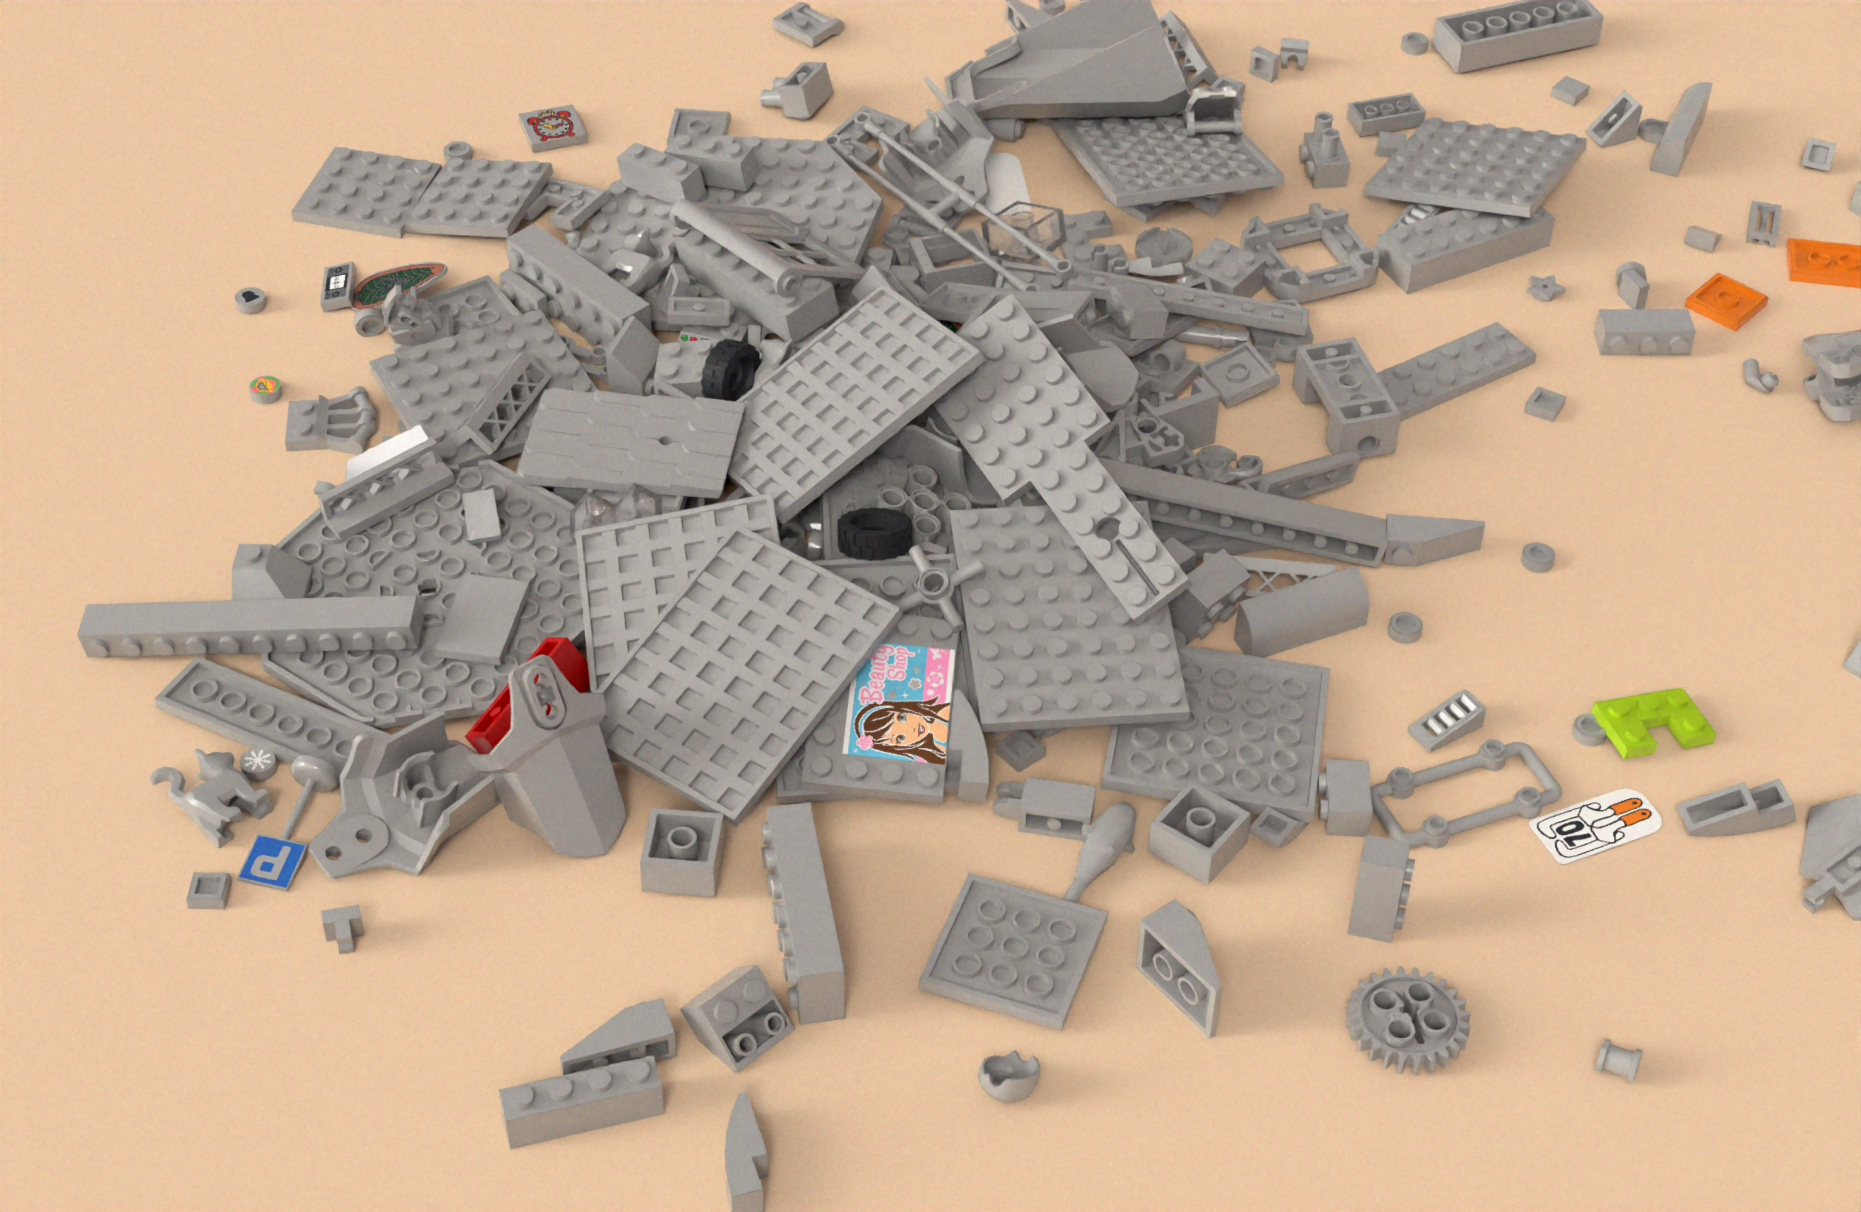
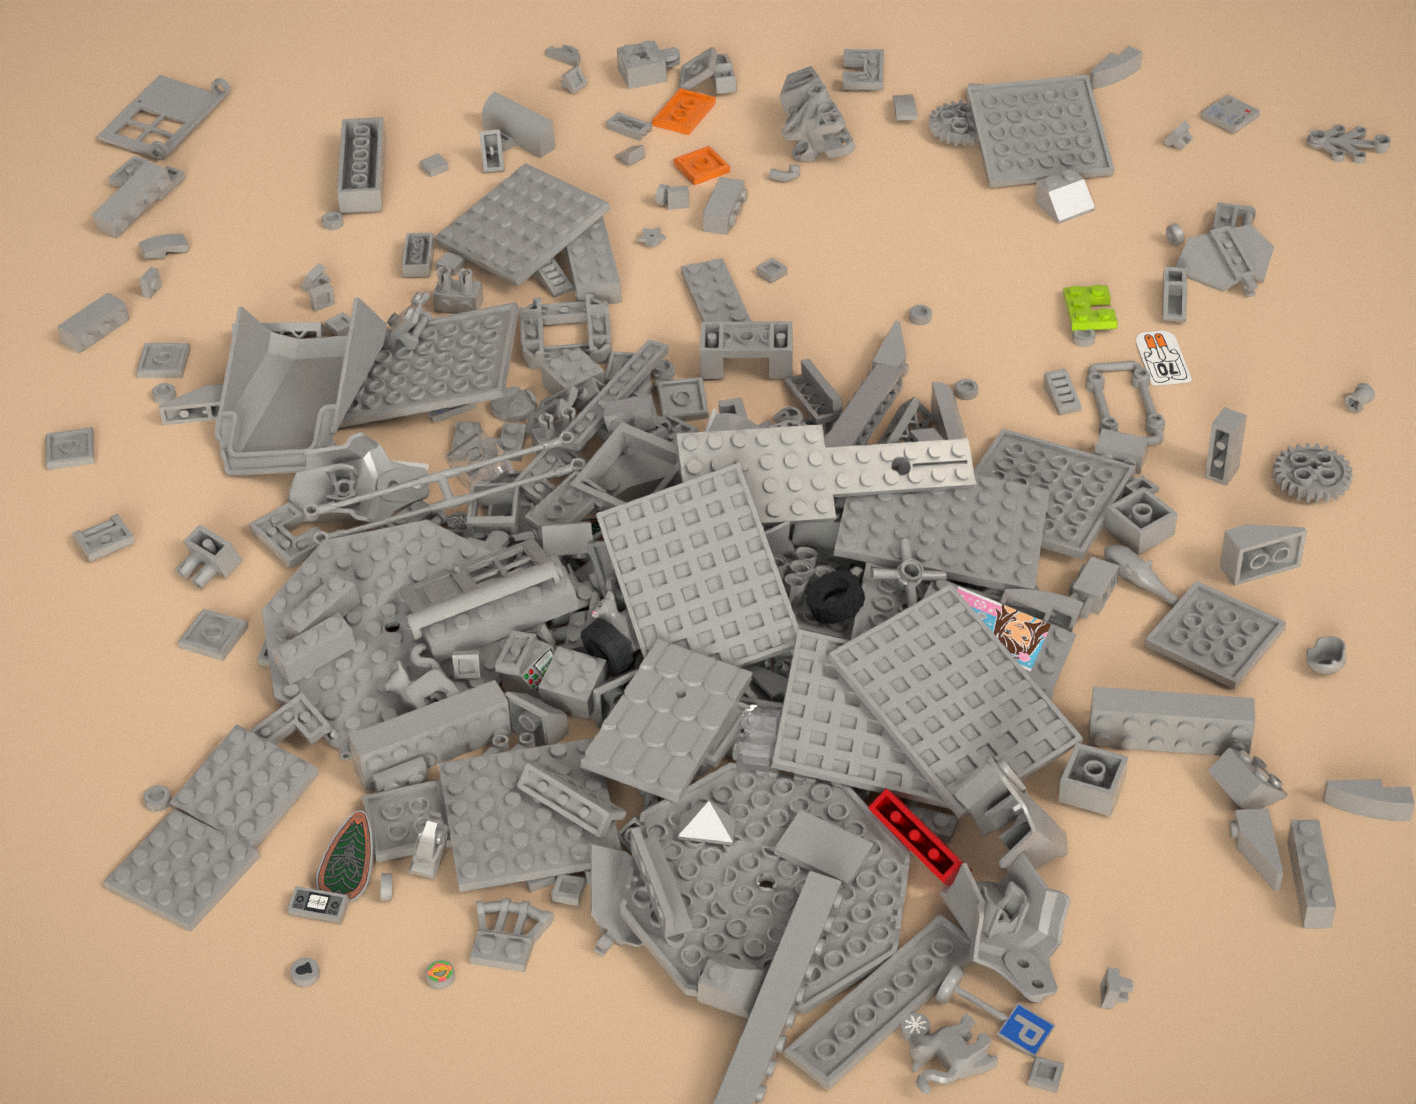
camera: 70 degrees left, 0 degrees up
(552, 128) = (156, 728): light grey tile -> none

